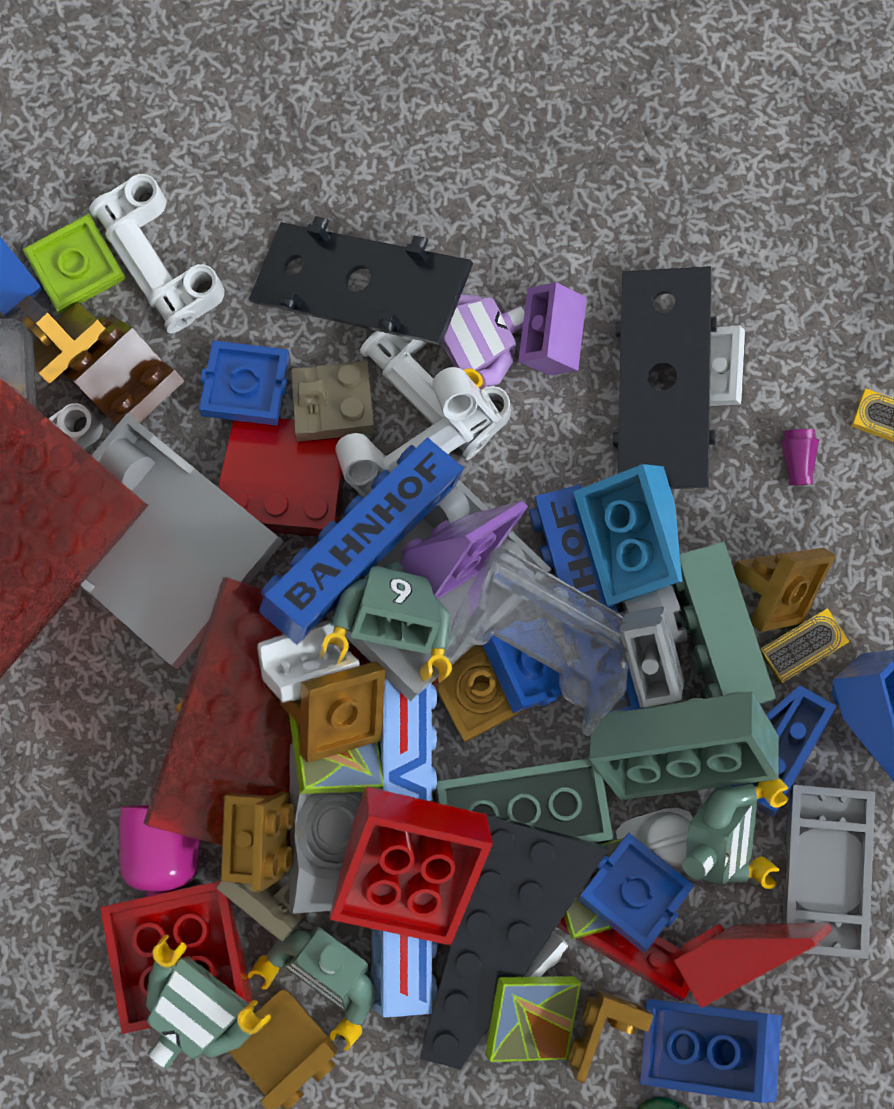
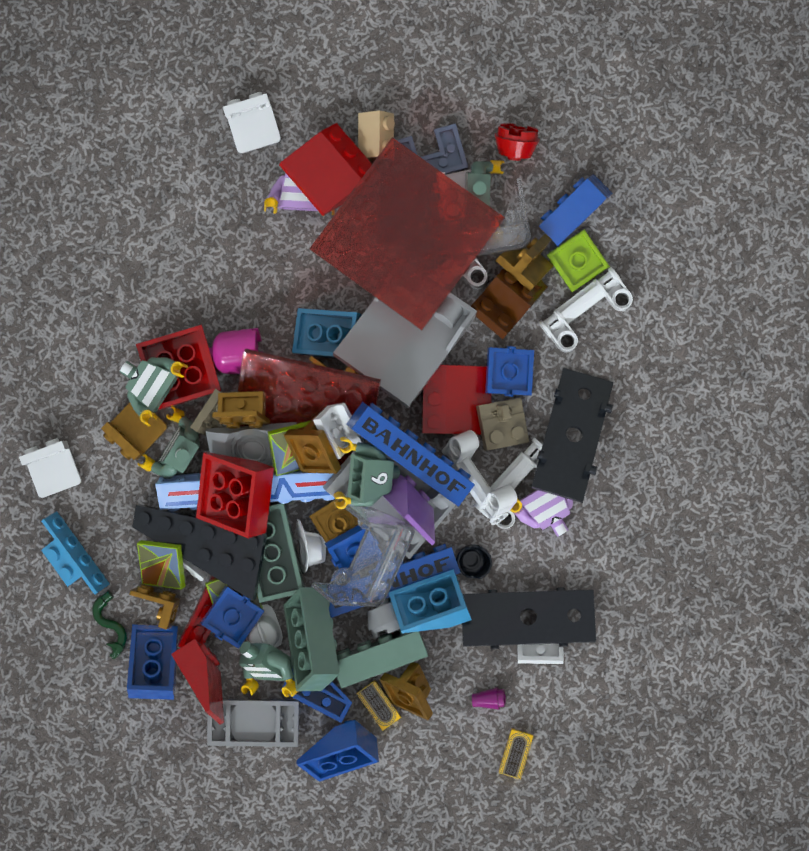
camera: 80 degrees right, 10 degrees up
(140, 690) = (321, 331): none -> dark azure slope
(519, 743) = (311, 548): none -> white piece
(552, 329) = (554, 550): medium lavender brick -> none
(562, 460) = (474, 561): none -> black hair
(652, 657) = (358, 619): light grey brick -> none

